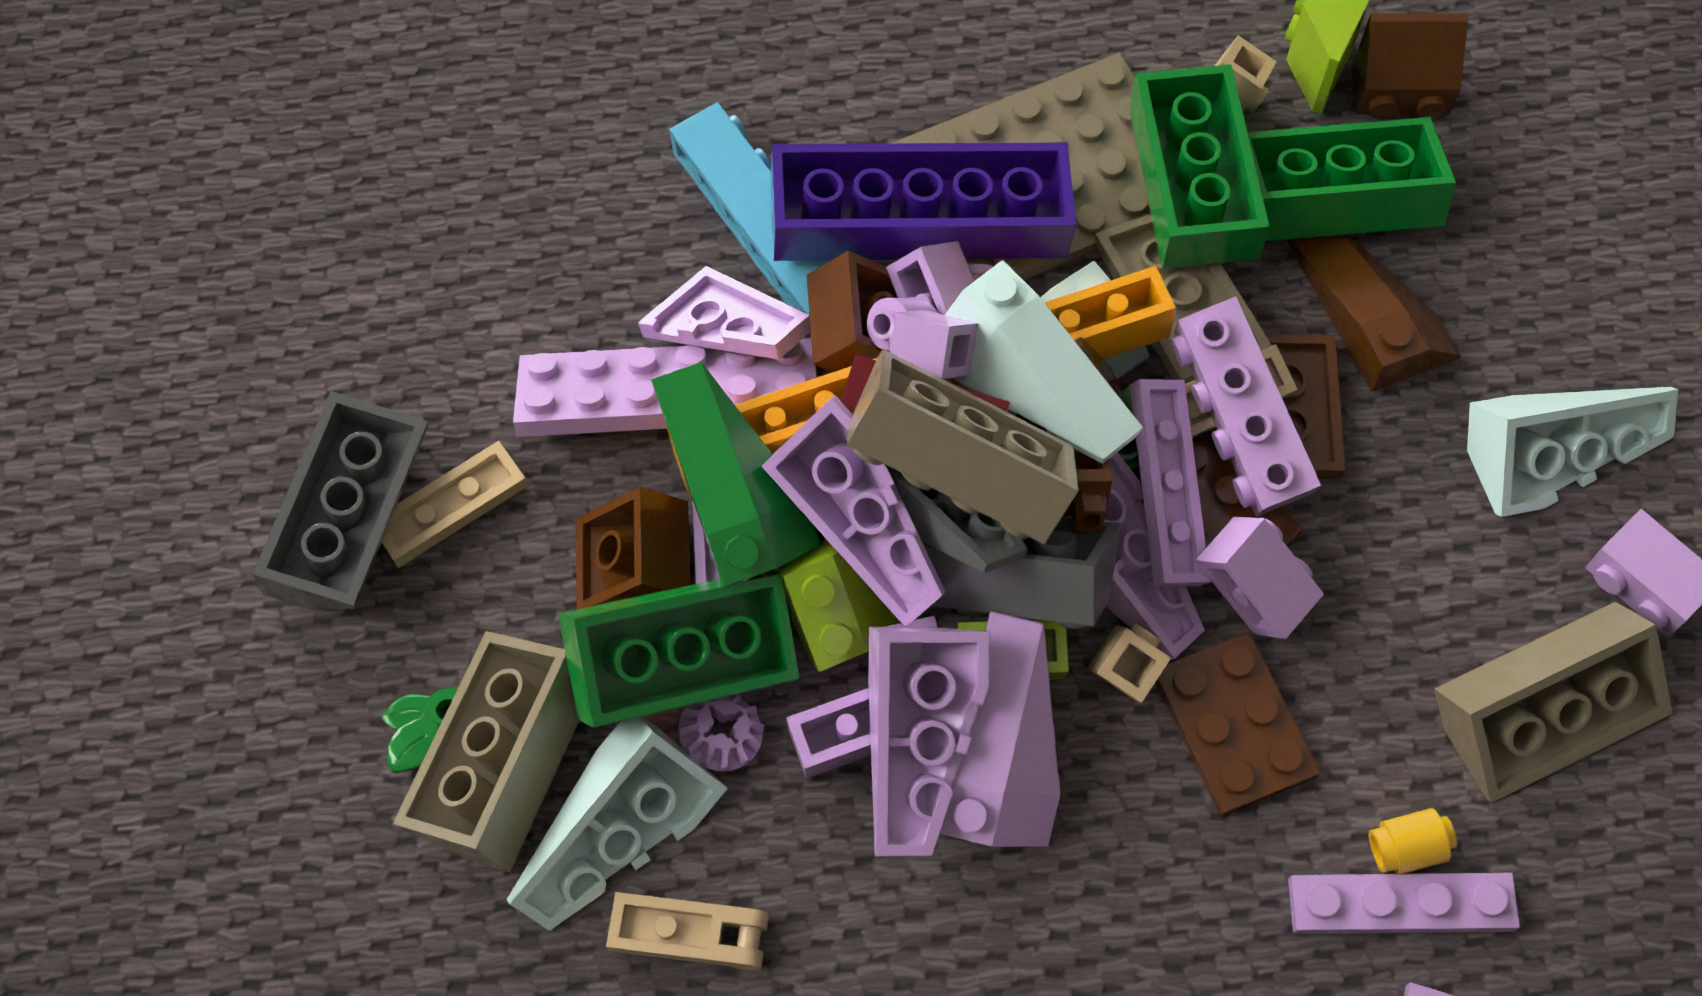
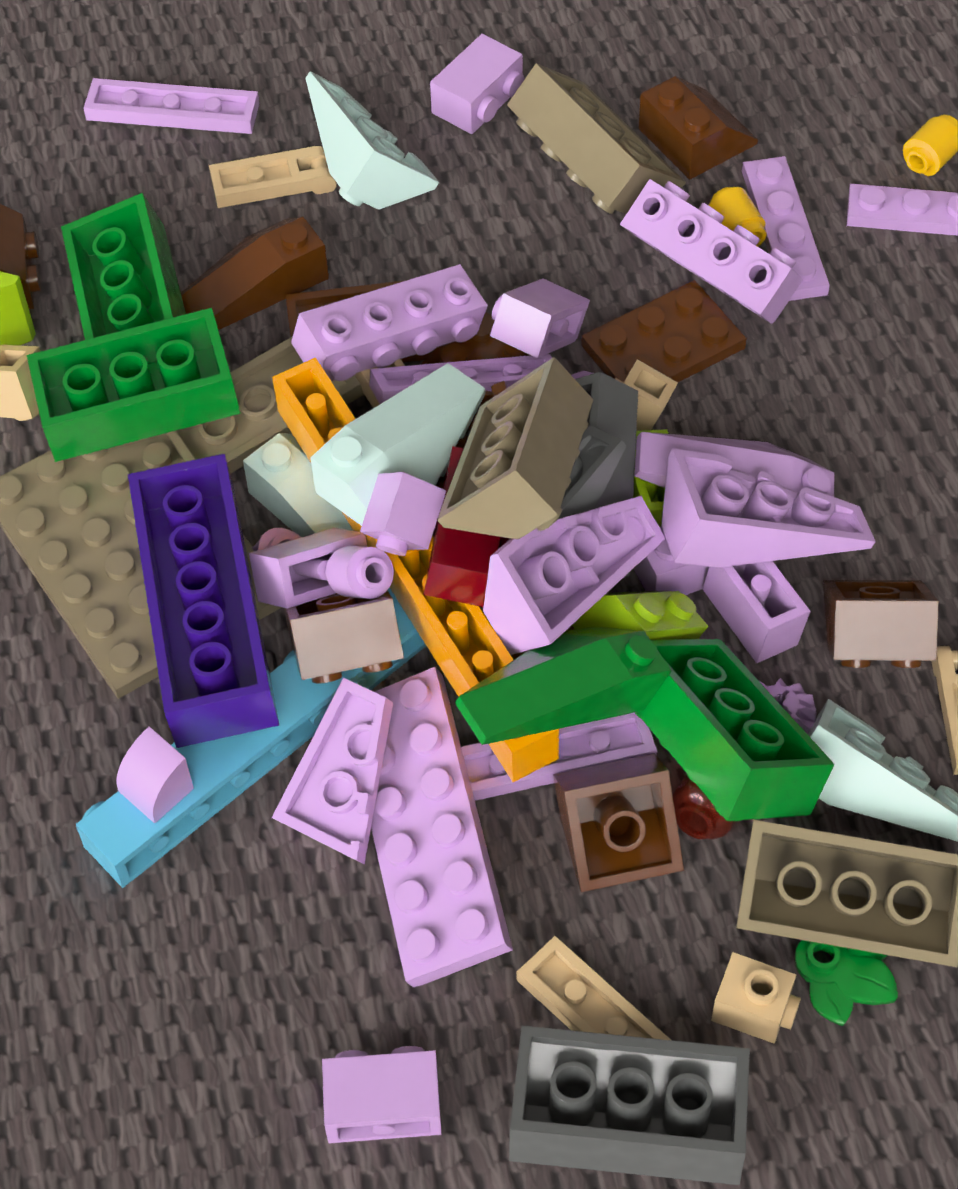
camera: 100 degrees left, 10 degrees down
(417, 320) = (381, 1095): none -> lavender brick
(420, 639) = (756, 998): none -> tan brick
(738, 156) = (153, 775): none -> lavender brick
(810, 861) = (880, 622): none -> slope
(1351, 792) = (713, 251): none -> lavender brick
(1520, 336) = (271, 176): none -> tan plate
(1580, 828) = (691, 126): none -> reddish brown slope
(1639, 254) = (171, 105): none -> lavender plate

